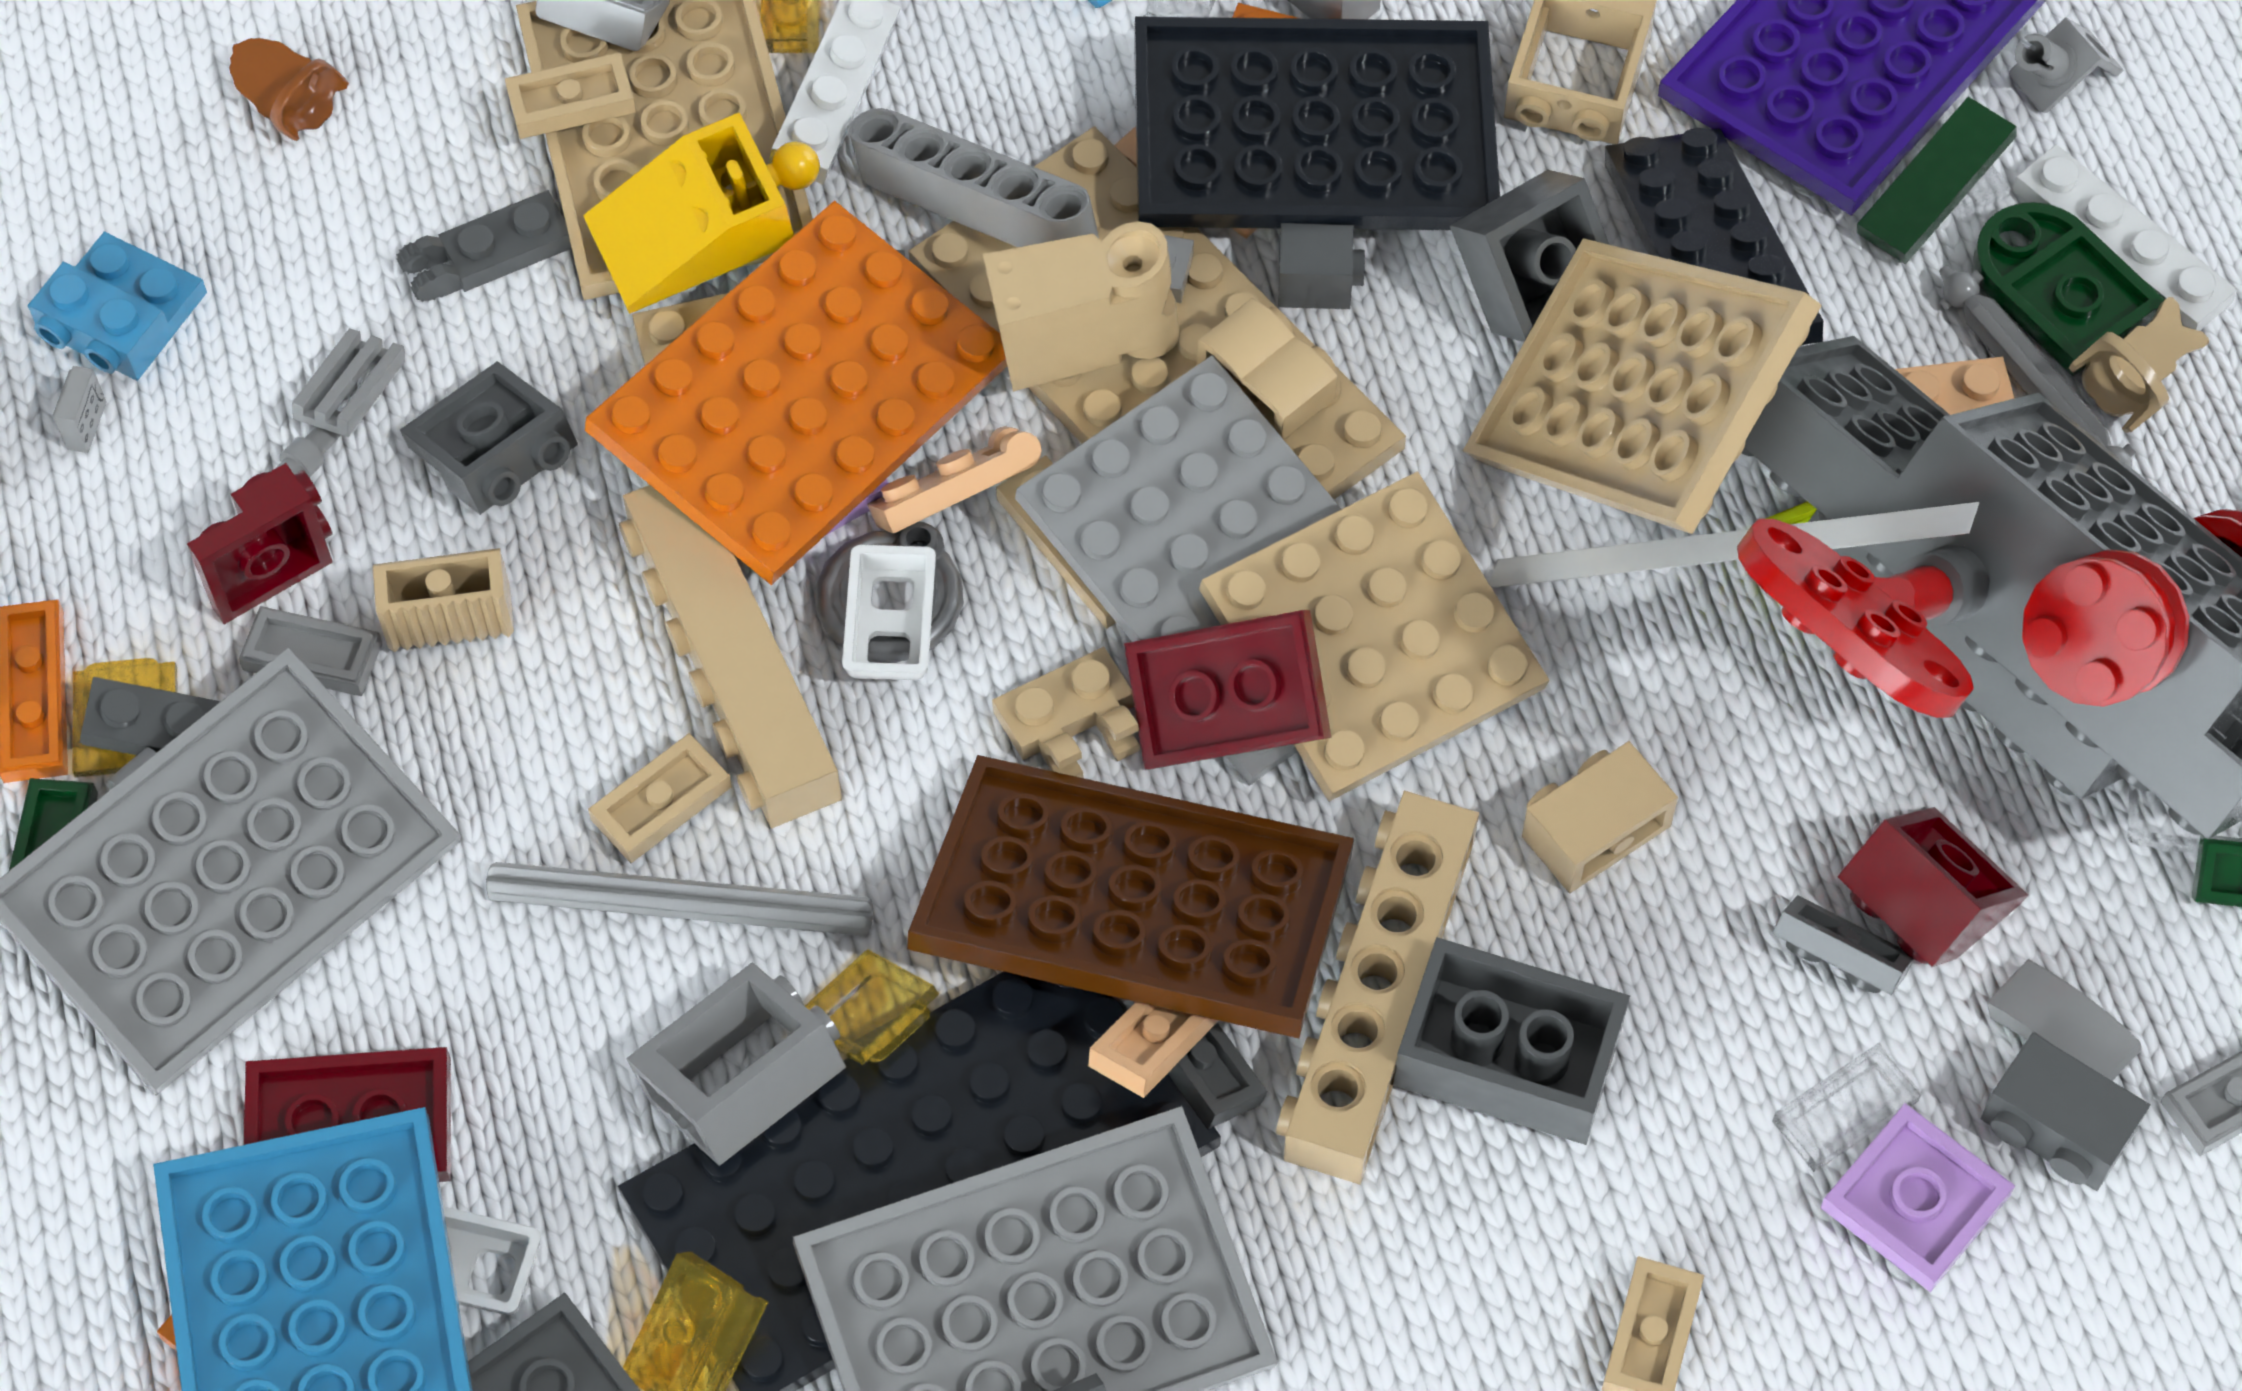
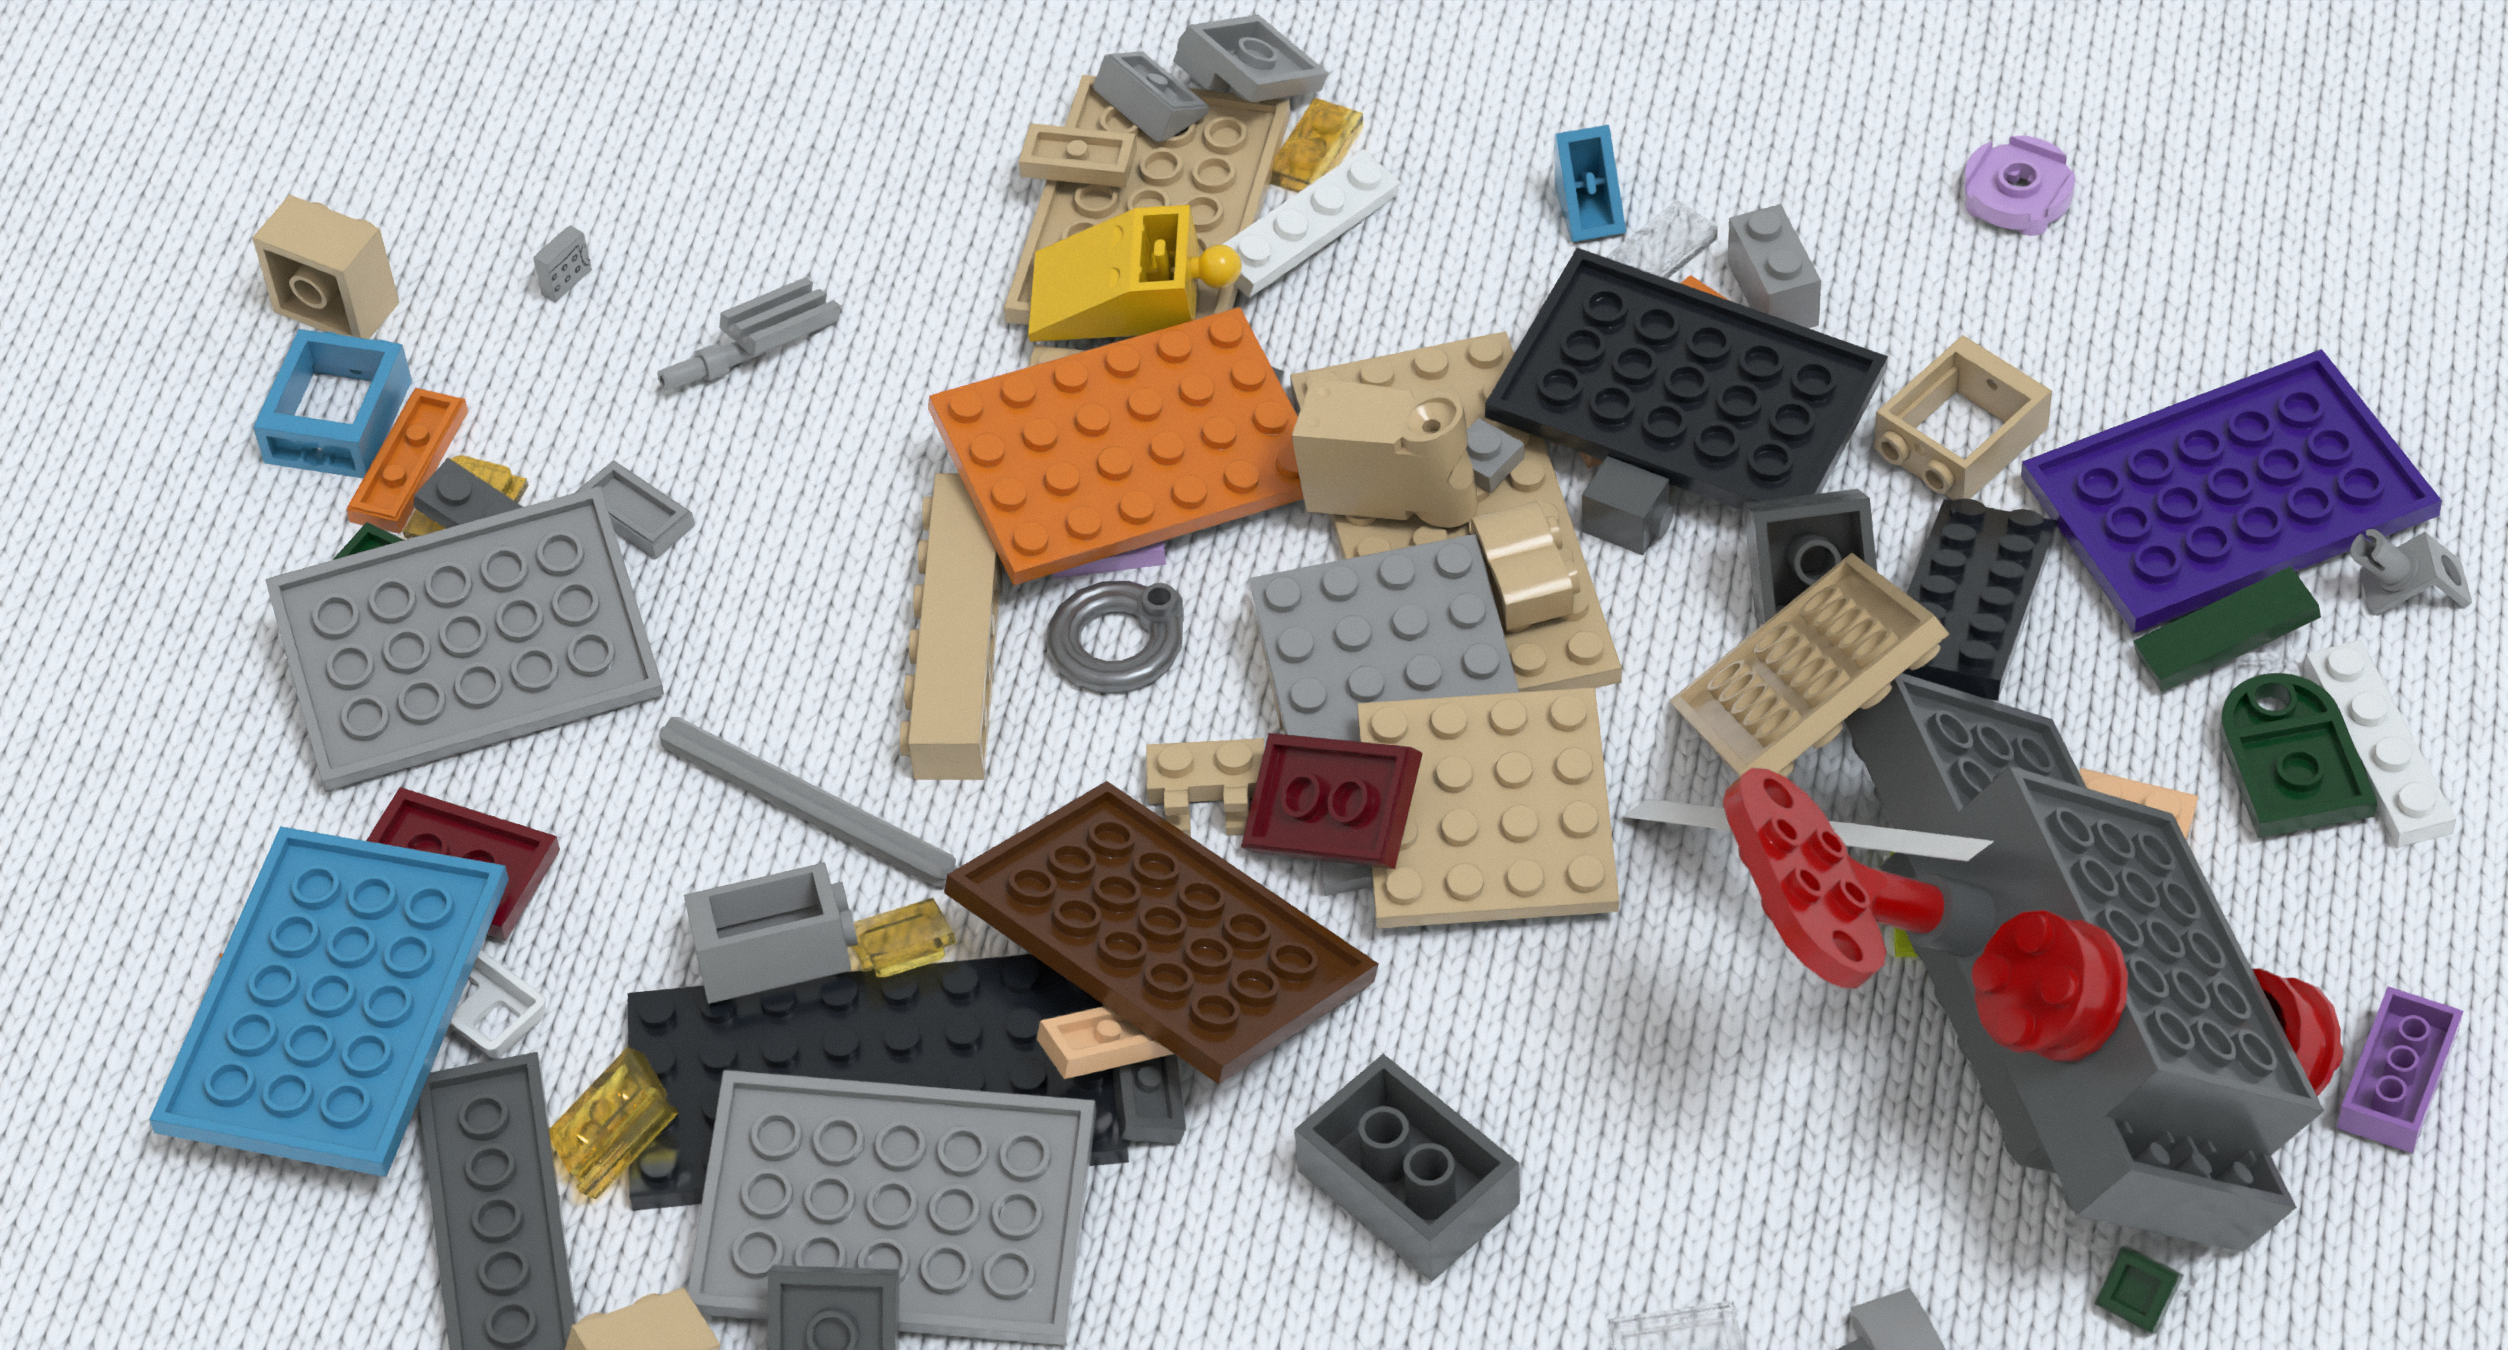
camera: 30 degrees right, 10 degrees down
(115, 306) = (637, 198): dark azure plate -> none
(264, 547) = (634, 408): dark red plate -> none
(285, 85) = (865, 76): dark orange piece -> none
(443, 599) = (751, 502): tan brick -> none
(486, 248) = (948, 255): dark grey hinge -> none
(491, 437) = (864, 398): dark grey plate -> none
(660, 798) = (835, 718): tan plate -> none
(863, 621) = (1075, 642): white piece -> none
(957, 478) = (1220, 561): light nougat plate -> none
(967, 181) = (1357, 325): light grey beam -> none
(1342, 1138) = (1231, 1190): tan brick -> none
(1598, 815) = (1598, 1027): tan brick -> none
(1822, 935) = (1740, 1200): plate -> none
(1930, 886) = (1857, 1192): dark red slope -> none
(2020, 355) = (2222, 825): light grey wheel -> none
(2128, 371) = (2305, 851): tan hair -> none

